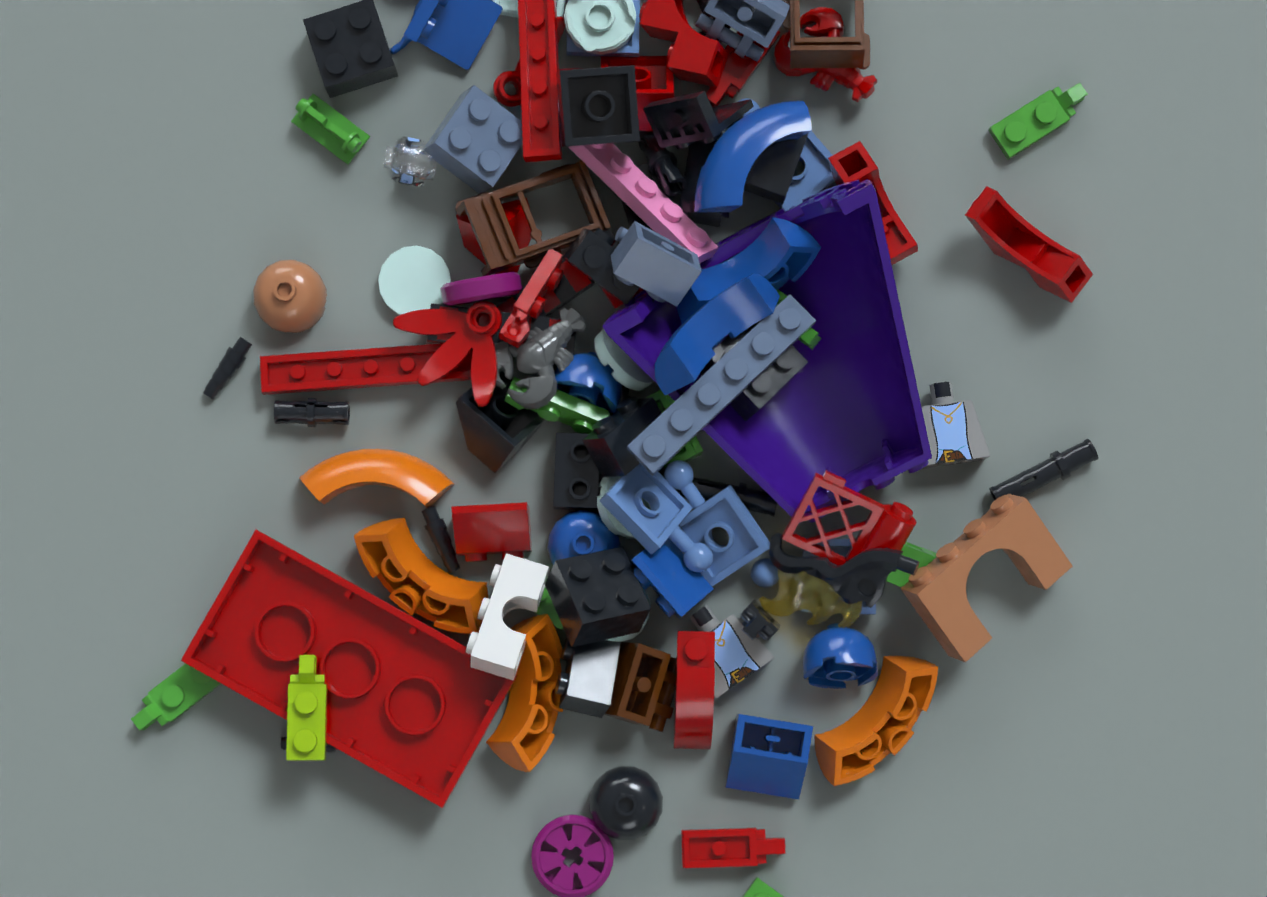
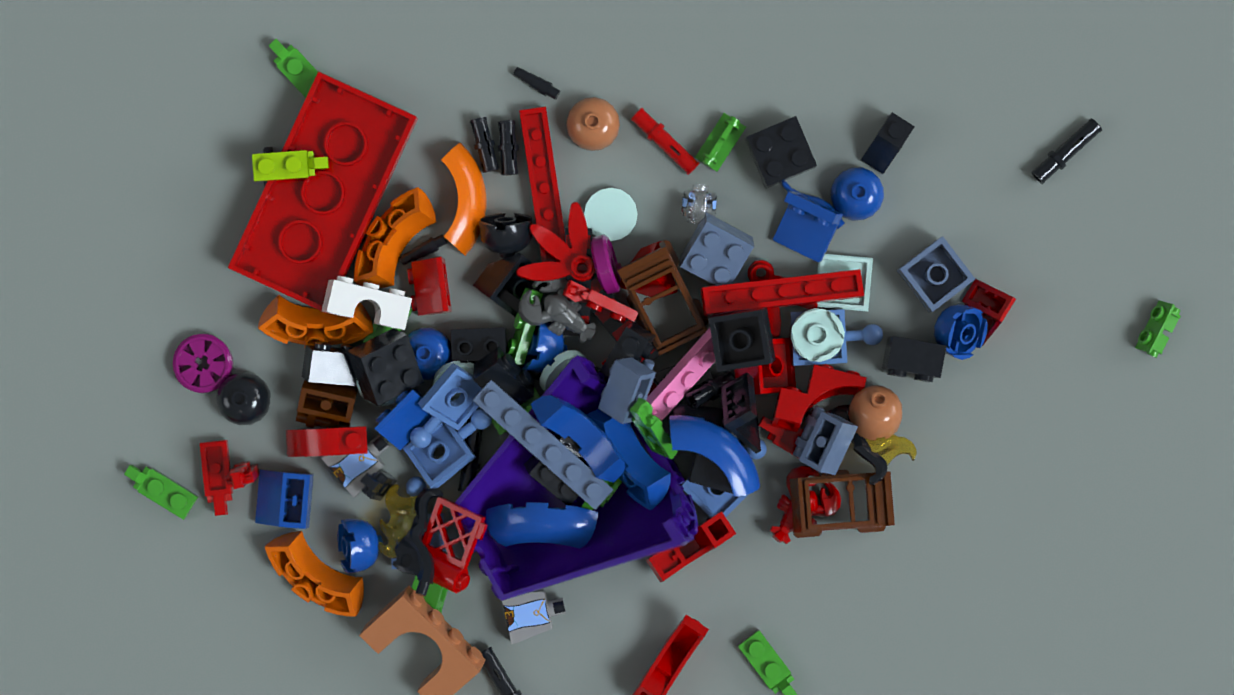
camera: 90 degrees right, 5 degrees up
(304, 444) = (484, 145): none -> black pin
(322, 201) = (664, 140): none -> red pin
(429, 422) = (505, 234): none -> black cylinder
(712, 235) = (651, 429): none -> bright green hinge
(732, 810) = (242, 474): none -> red hinge
(829, 400) = (541, 524): none -> blue brick

